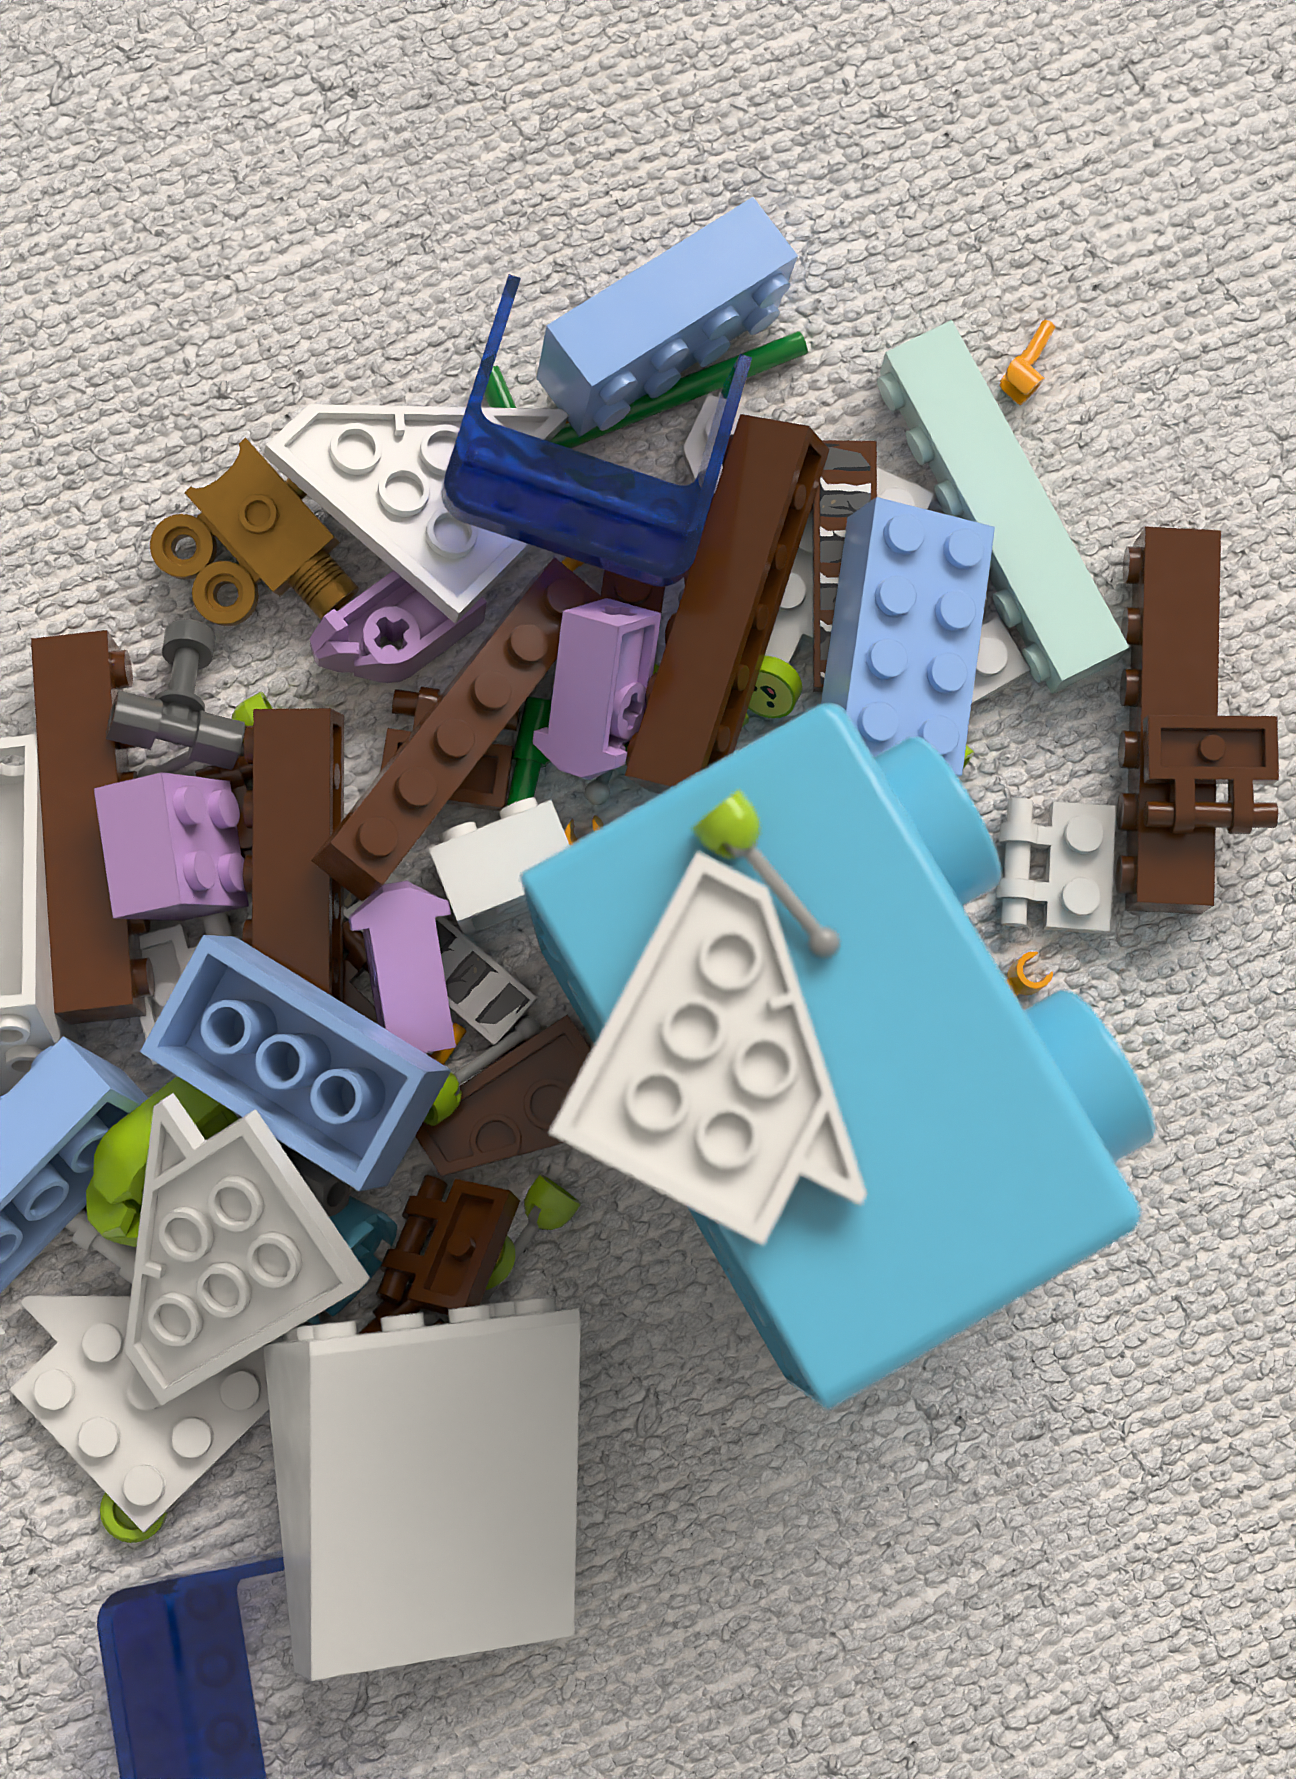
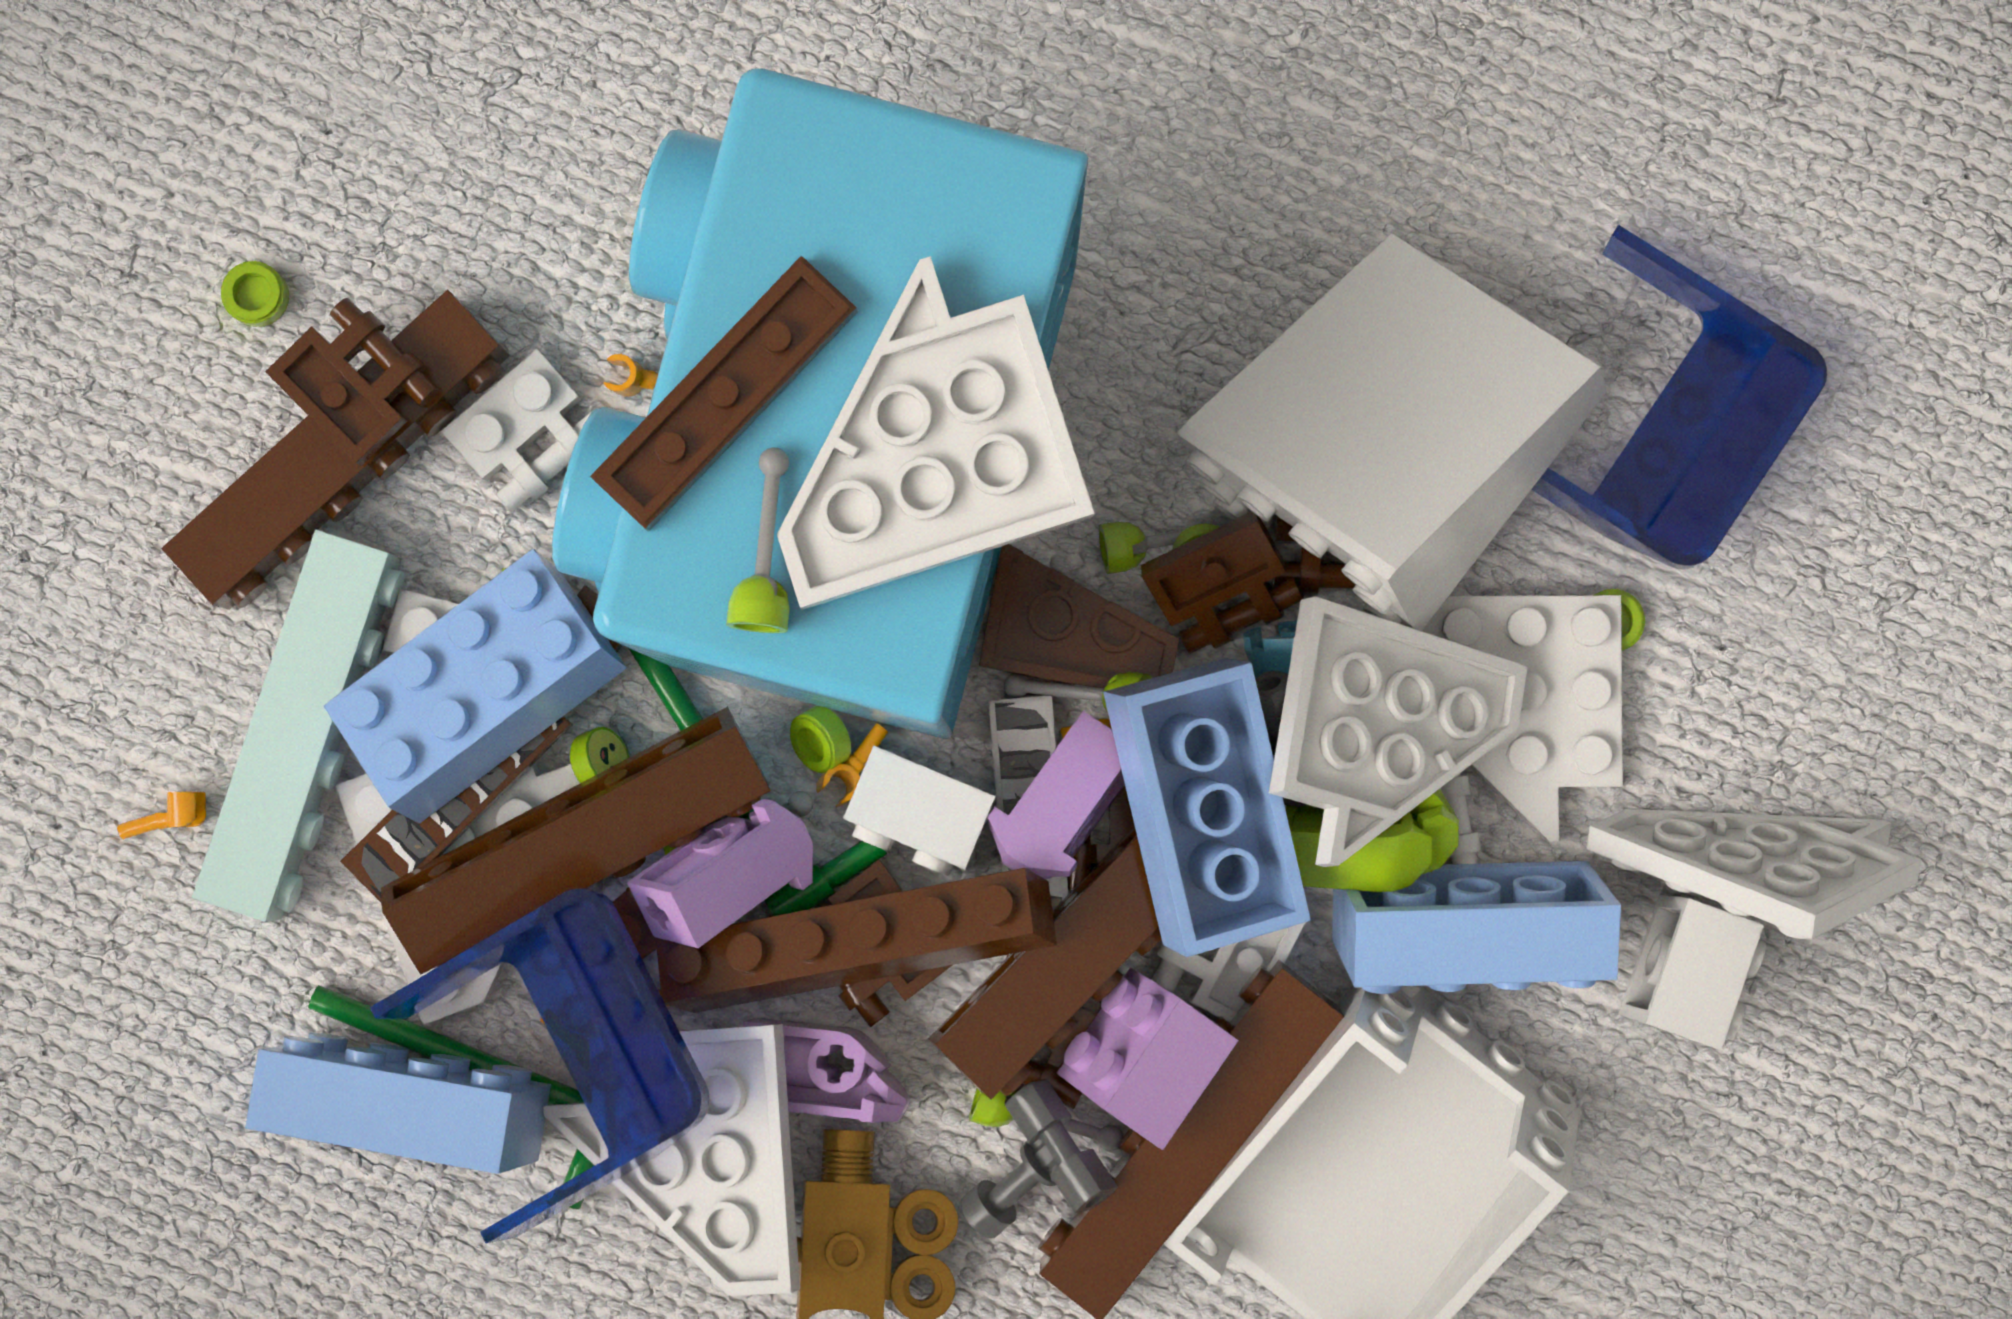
camera: 130 degrees left, 5 degrees up
(911, 958) = (724, 393): none -> reddish brown tile

